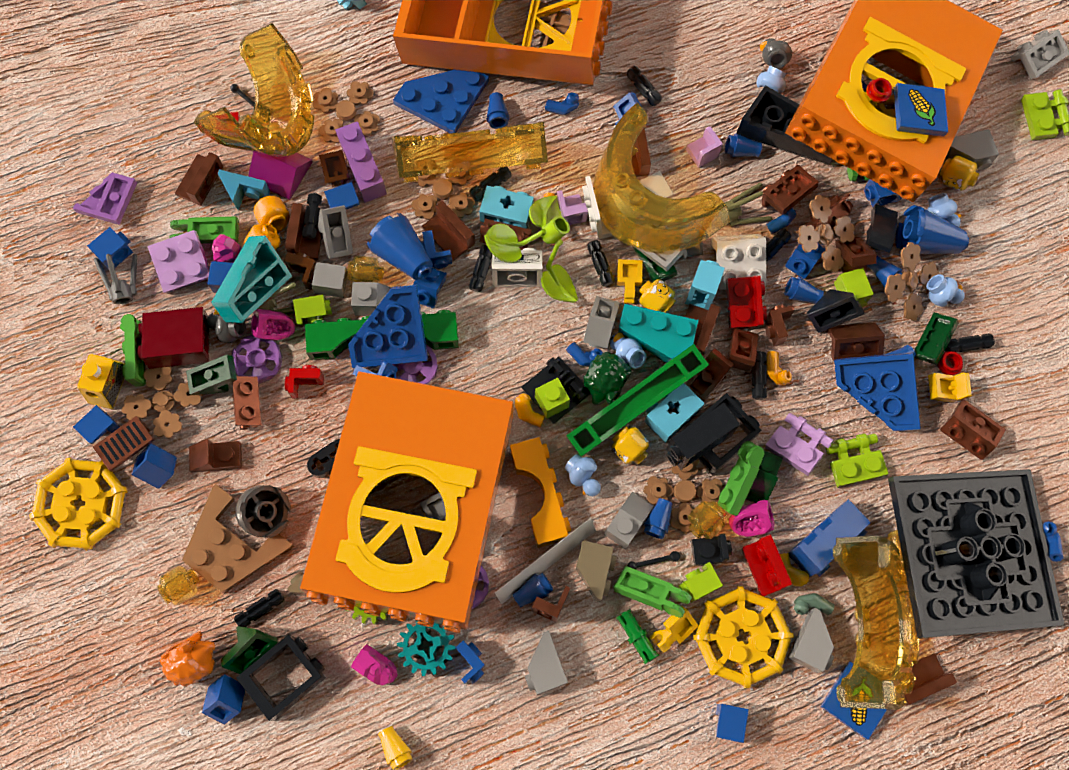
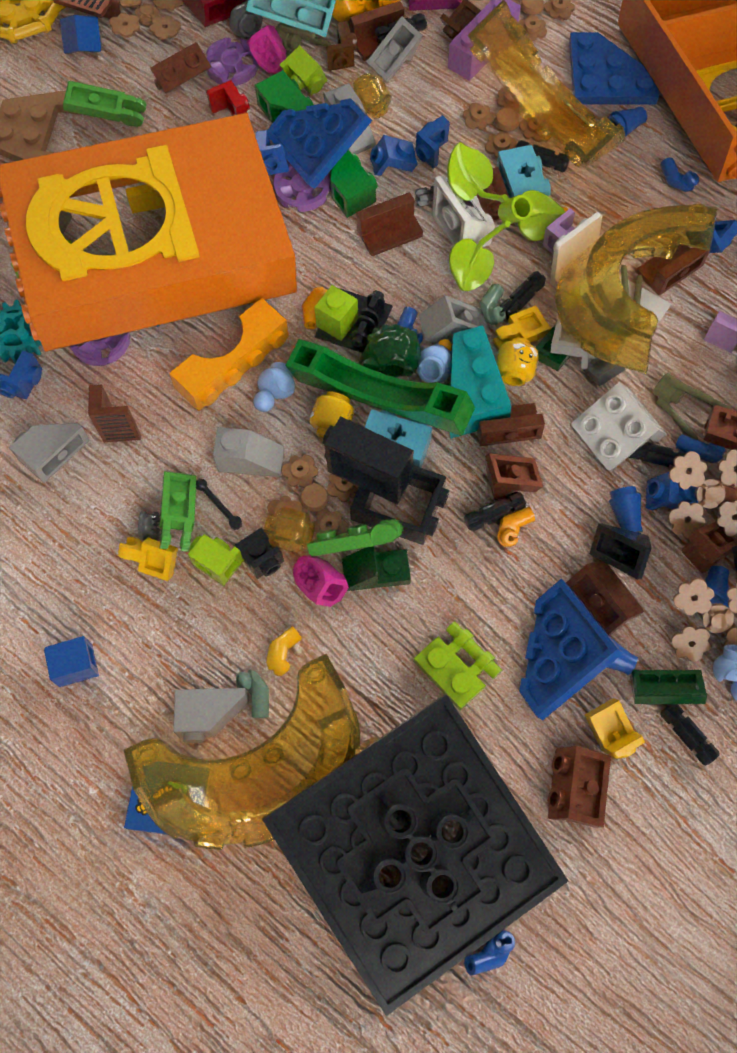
camera: 65 degrees right, 5 degrees down
(212, 376) = (188, 29): slope -> none
(214, 456) = (117, 76): copper slope -> none
(241, 478) = (104, 103): none -> bright green hinge
(263, 511) = (75, 124): dark grey cylinder -> none
(329, 280) = (342, 68): light grey panel -> none
(342, 195) = (434, 39): blue panel -> none
(399, 245) = (414, 101): blue cone -> none
(449, 231) = (469, 136): copper panel -> none
(490, 322) = (388, 224): none -> copper panel
(535, 587) = (127, 397): blue cone -> none
(546, 560) = (159, 394): white sticker -> none
(593, 568) = (175, 445): dark tan slope -> none
(596, 290) = (489, 305): none -> sand green arm
(637, 636) = (123, 523): green pin -> none
(649, 619) = (148, 525): none -> dark grey bush
(658, 521) = (263, 483): blue cone -> none
(705, 284) = (560, 394): medium azure brick -> none
(710, 377) = (459, 455): copper slope -> none
(745, 301) = (571, 452): red bracket -> none
(757, 644) = (181, 653): yellow plate -> none
(766, 566) = (271, 618): red bracket -> none
(775, 325) = (561, 499): copper bracket -> none
(795, 450) = (427, 588): lavender plate -> none
(816, 549) = (364, 676): blue wedge -> none
(856, 283) = (668, 562): lime brick -> none
(928, 679) = (232, 867): copper panel -> none
(956, 361) = (657, 717): red plate -> none

